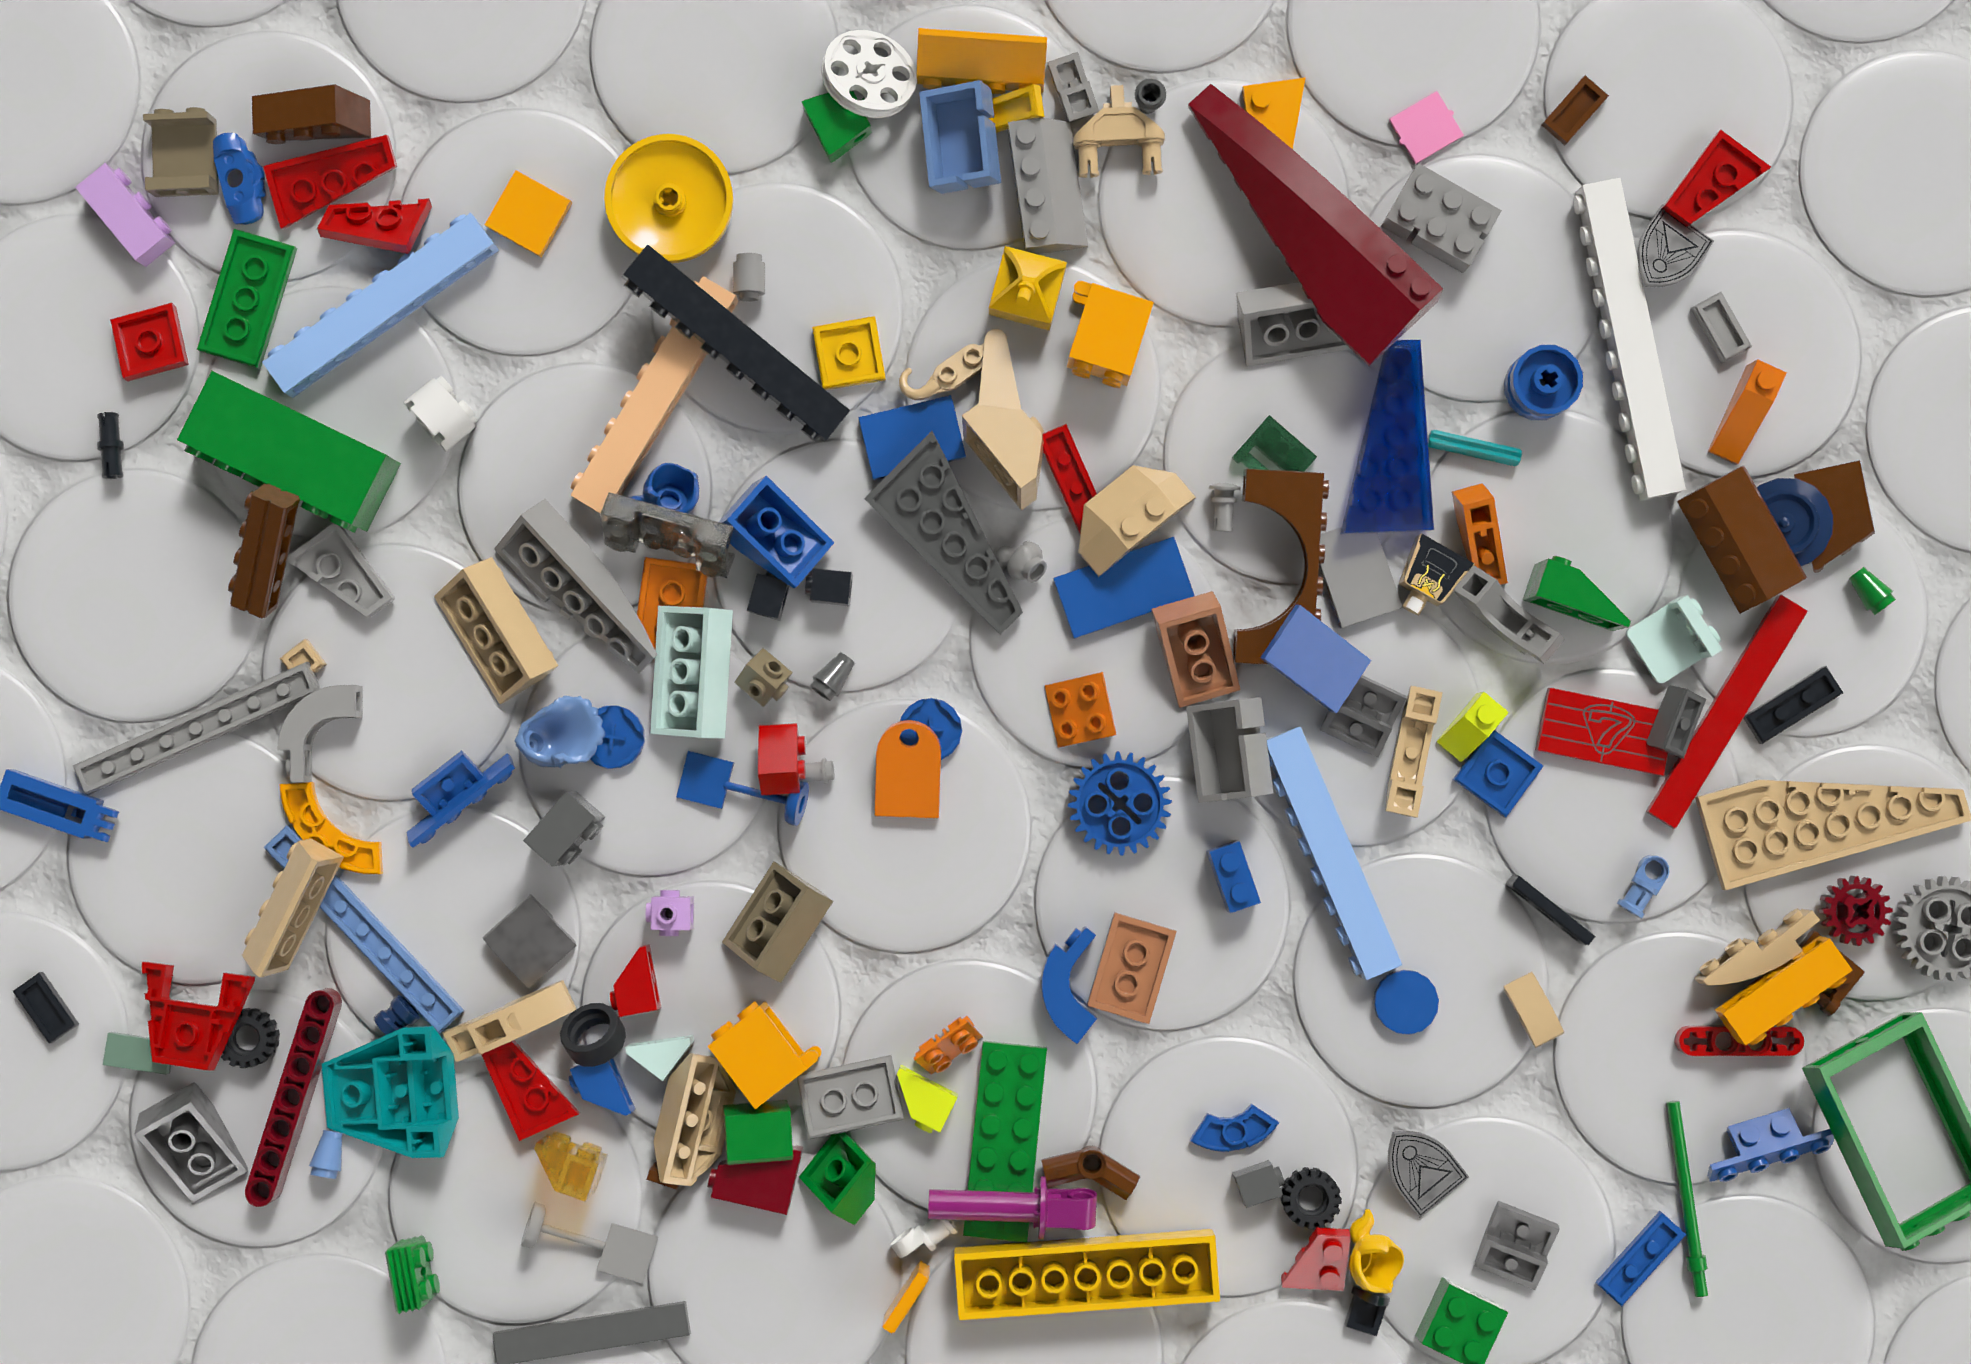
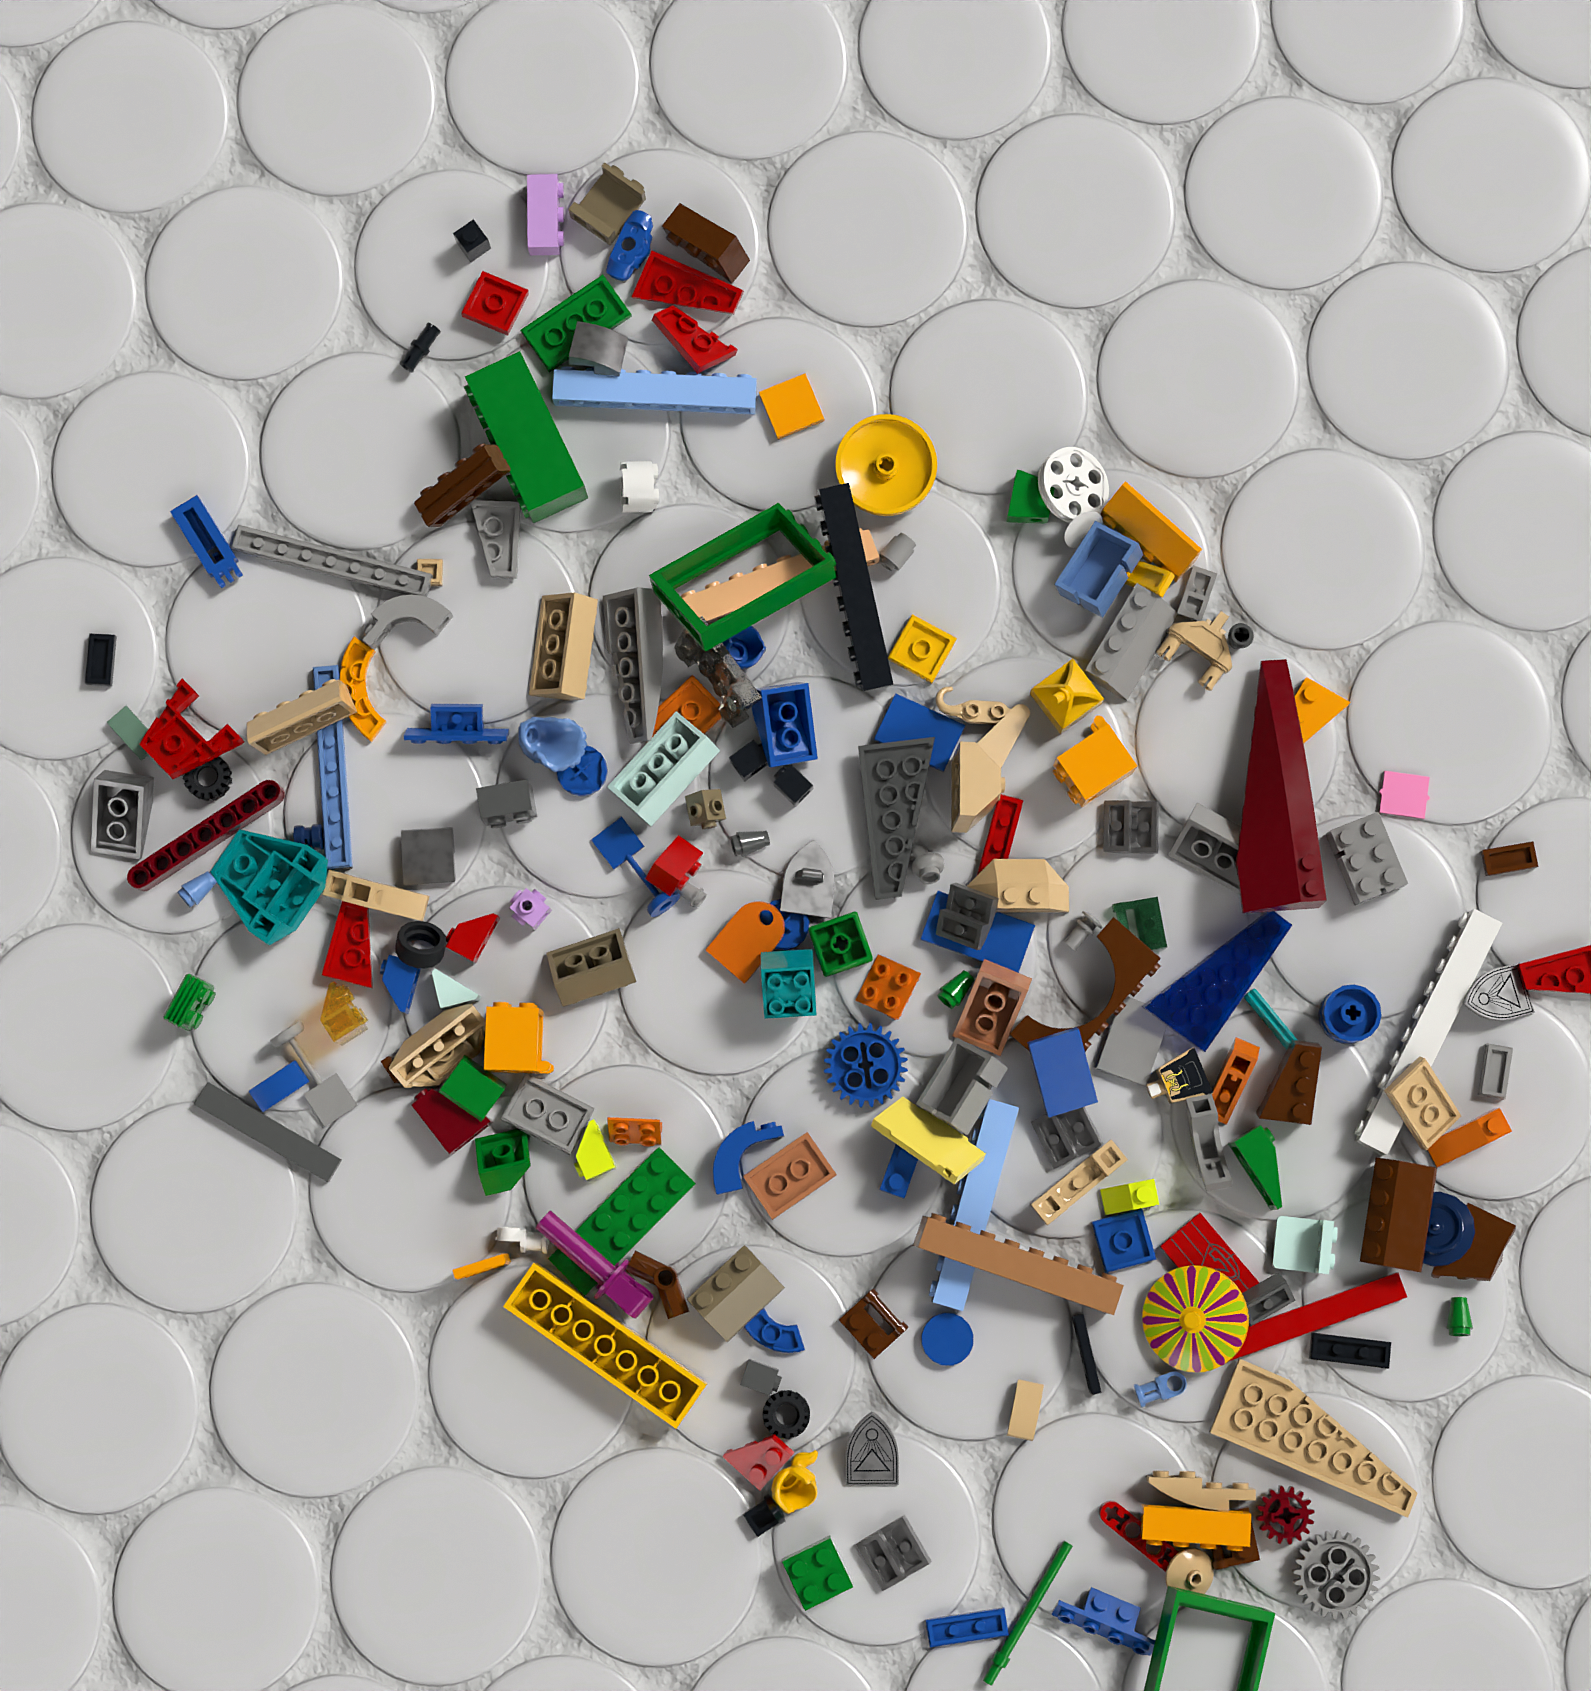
camera: 45 degrees right, 5 degrees down
(74, 297) = (472, 240): none -> black brick
(289, 306) = (598, 348): none -> flat silver slope
(566, 1281) = (278, 1086): none -> blue slope
(577, 402) = (727, 546): none -> green window
(909, 111) = (1079, 528): none -> white sticker
(923, 670) = (808, 883): none -> shield
(983, 785) = (788, 983): none -> teal brick
(993, 685) = (847, 928): none -> green brick
(1103, 581) = (967, 916): none -> flat silver slope
(1147, 660) = (955, 990): none -> green cone
(1171, 1123) = (735, 1293): none -> dark tan slope
(1190, 367) = (1131, 826): none -> flat silver slope
(1240, 828) = (928, 1139): none -> light yellow piece
(1323, 1055) = (867, 1330): none -> reddish brown plate
(1419, 879) = (1017, 1264): none -> medium nougat brick
(1545, 494) = (1294, 1085): none -> reddish brown wedge
(1627, 793) = (1195, 1318): none -> dish
(1680, 413) = (1422, 1103): none -> tan tile
(1809, 1036) = (1185, 1566): none -> tan dish

